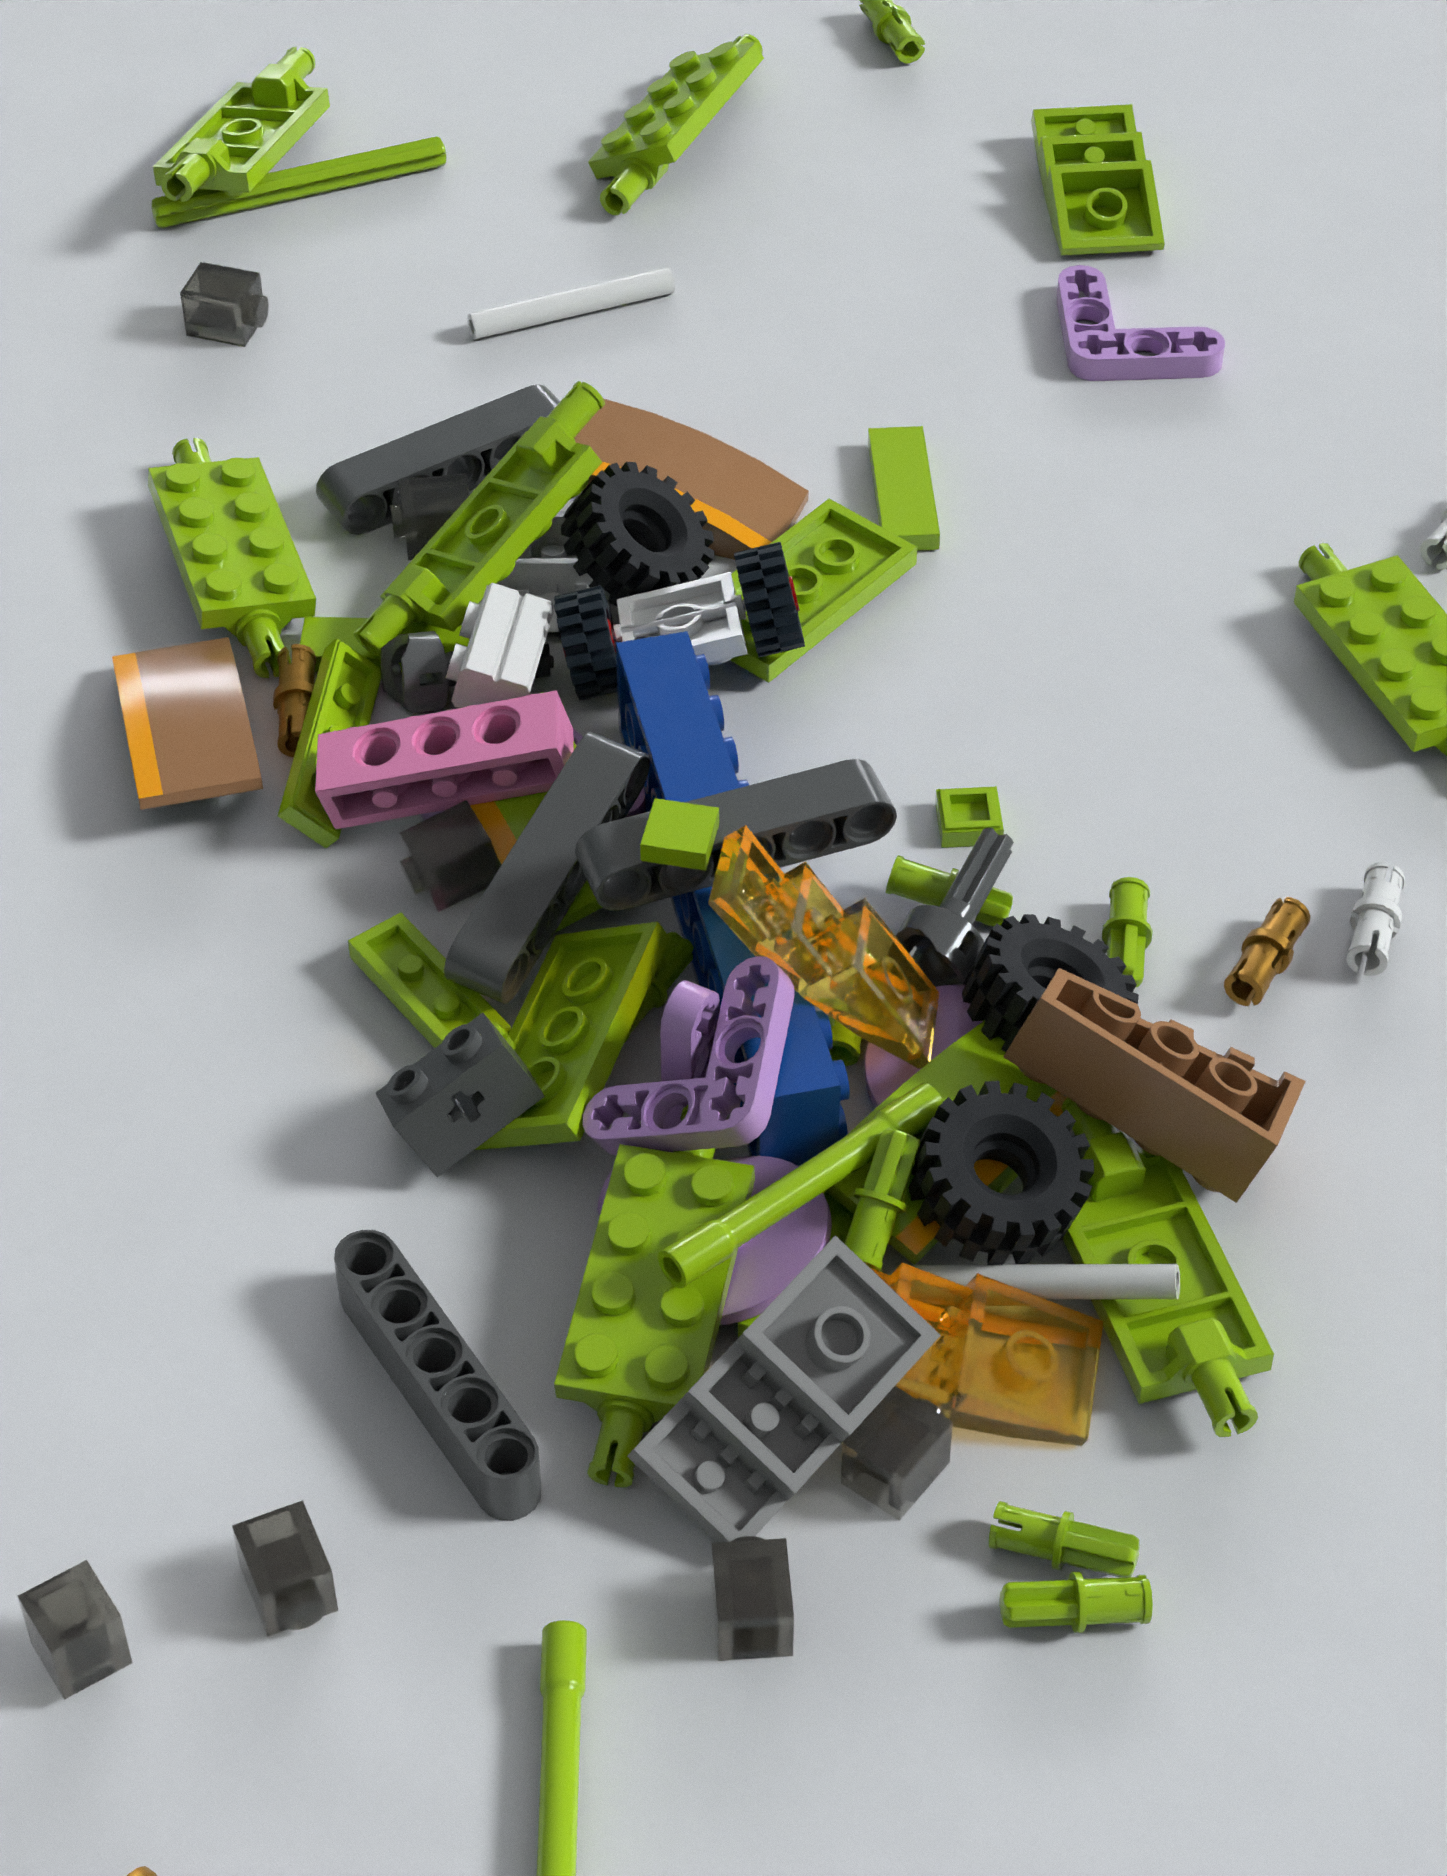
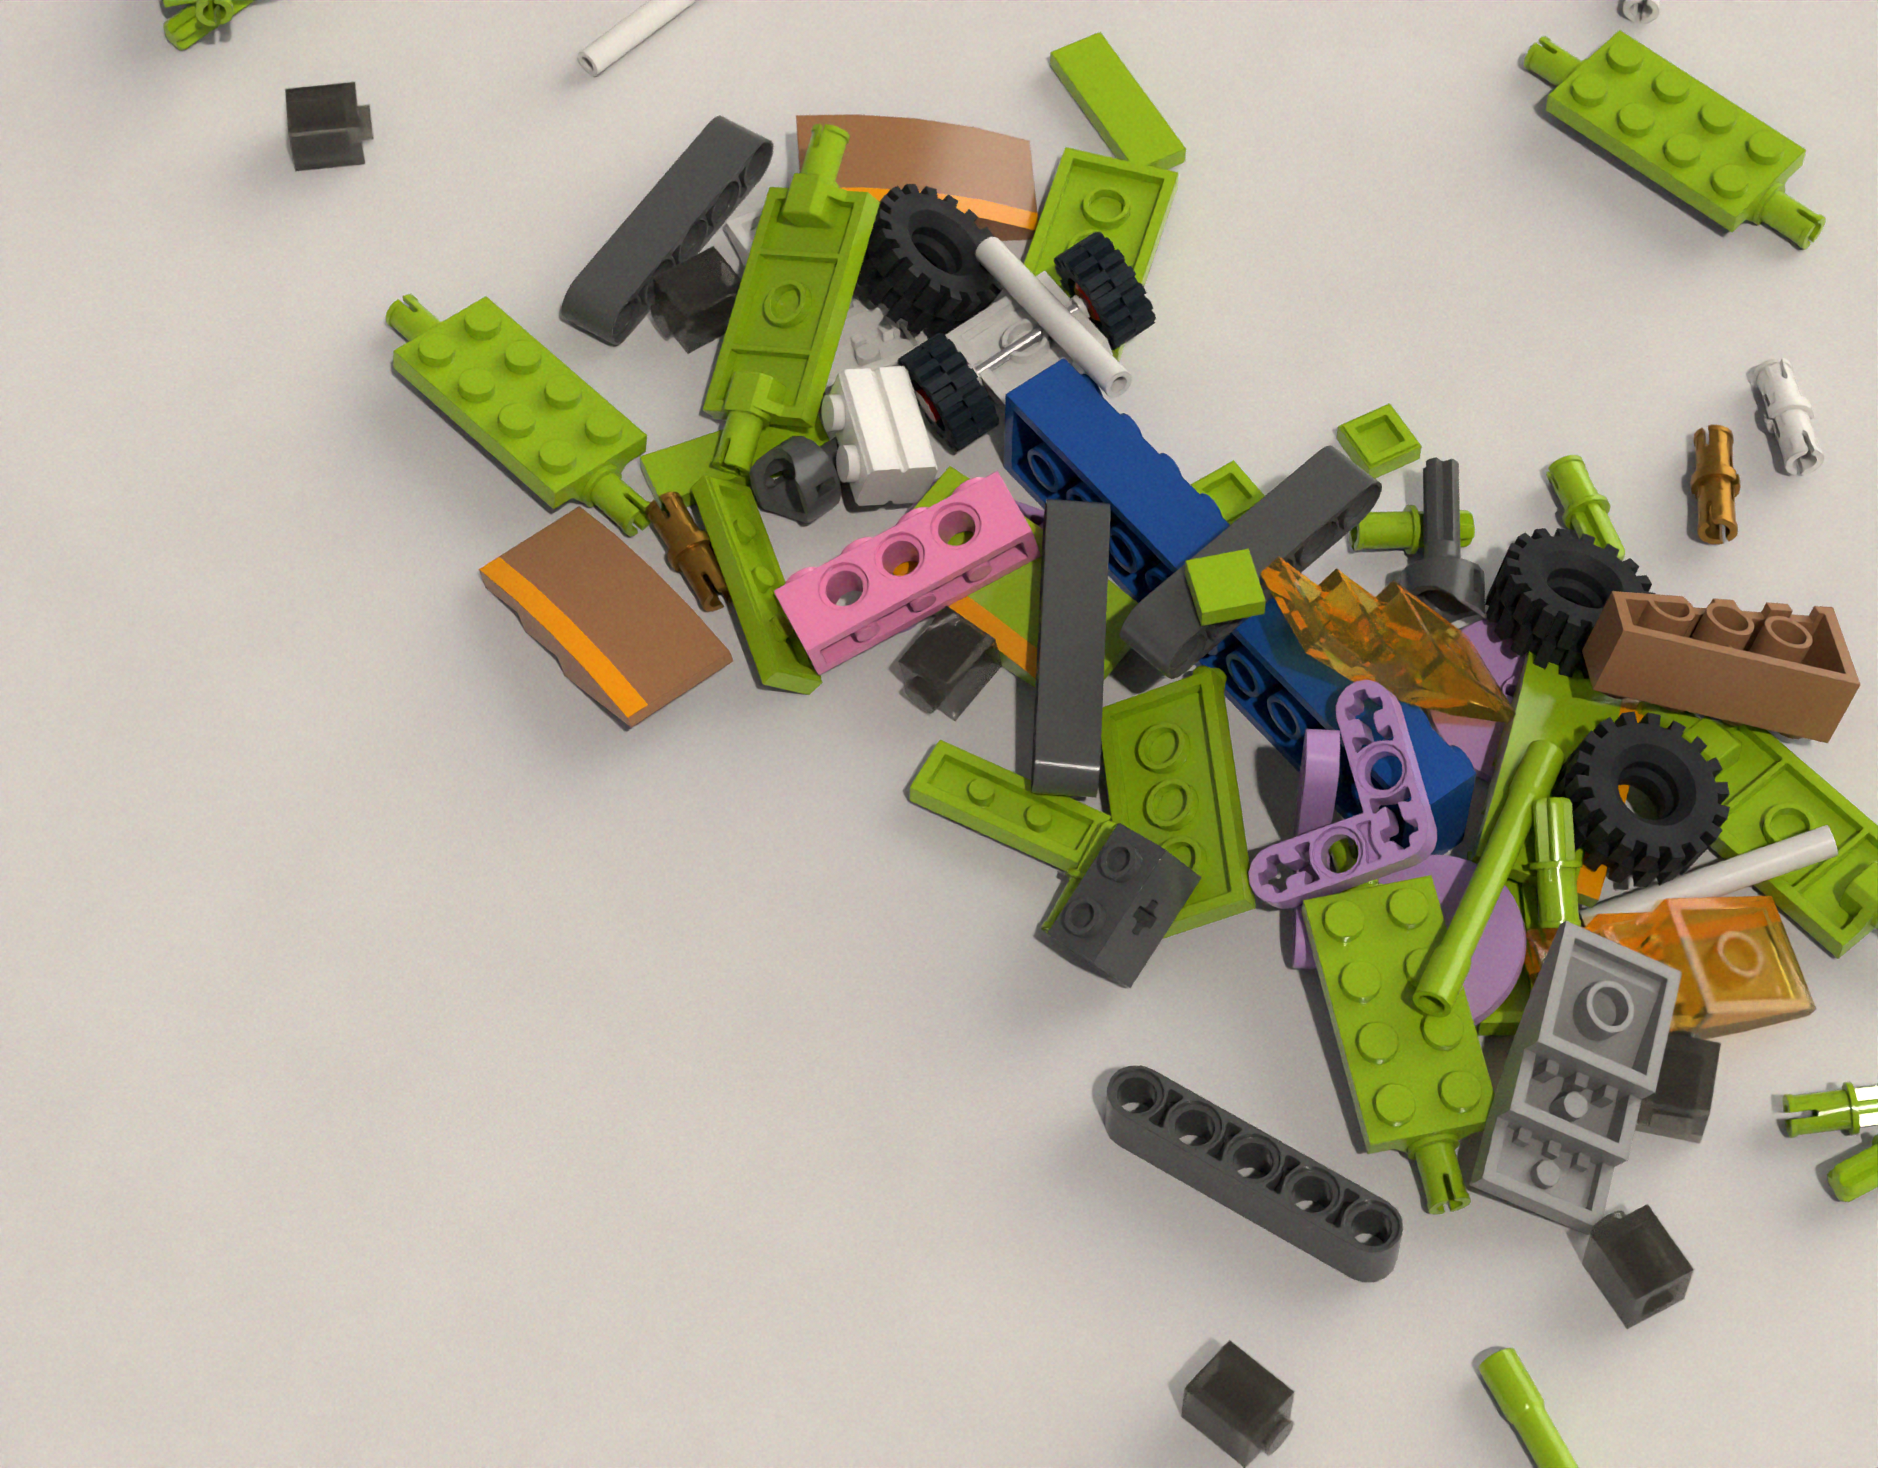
camera: 25 degrees left, 10 degrees up
(706, 604) = (1053, 317): none -> white piece

